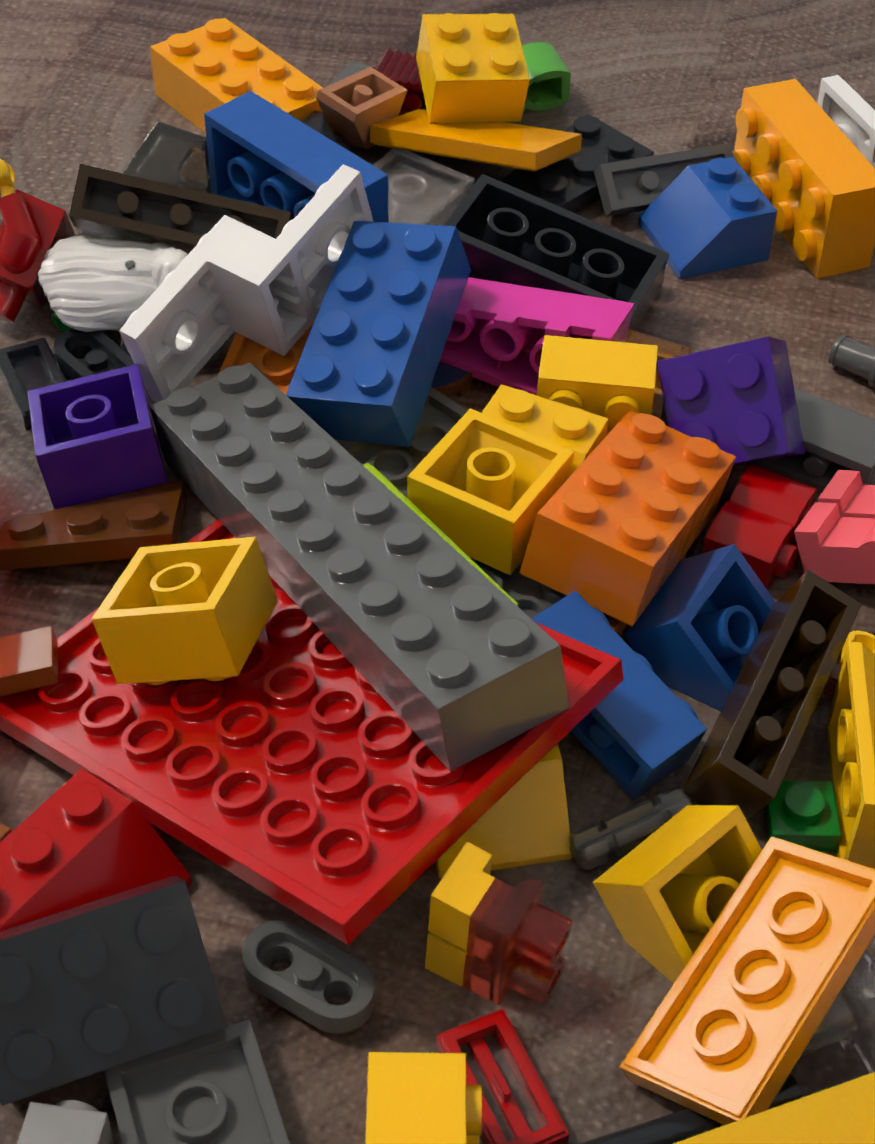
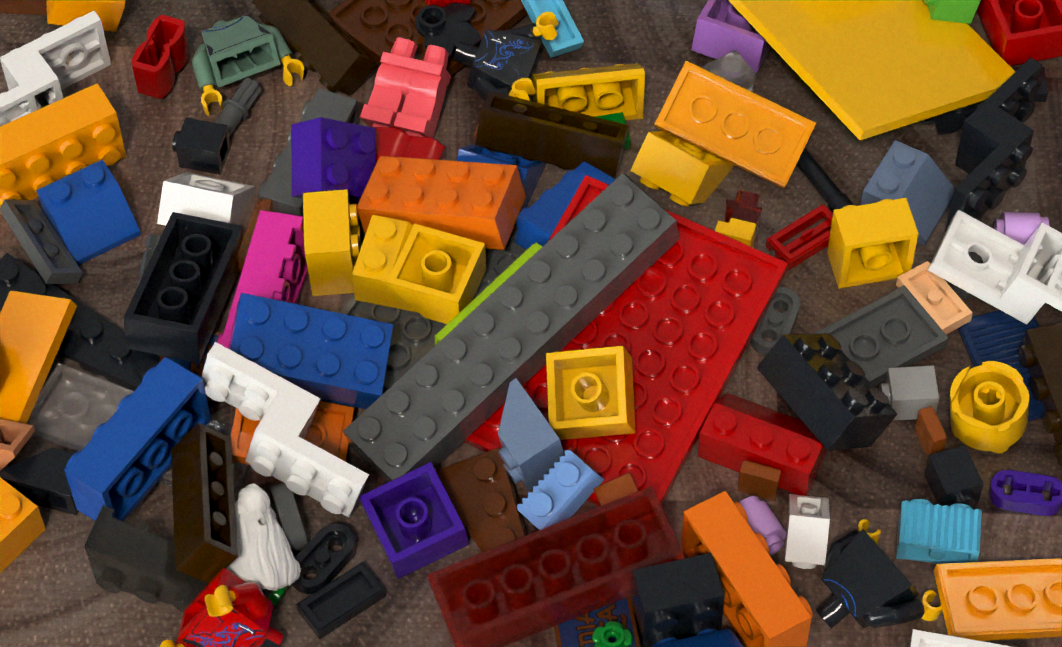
camera: 100 degrees left, 10 degrees up
(57, 581) = (560, 492): none -> medium blue brick
(144, 507) = (526, 439): none -> sand blue slope
(706, 305) = (204, 198): none -> white slope
(812, 325) = (202, 146): none -> black brick

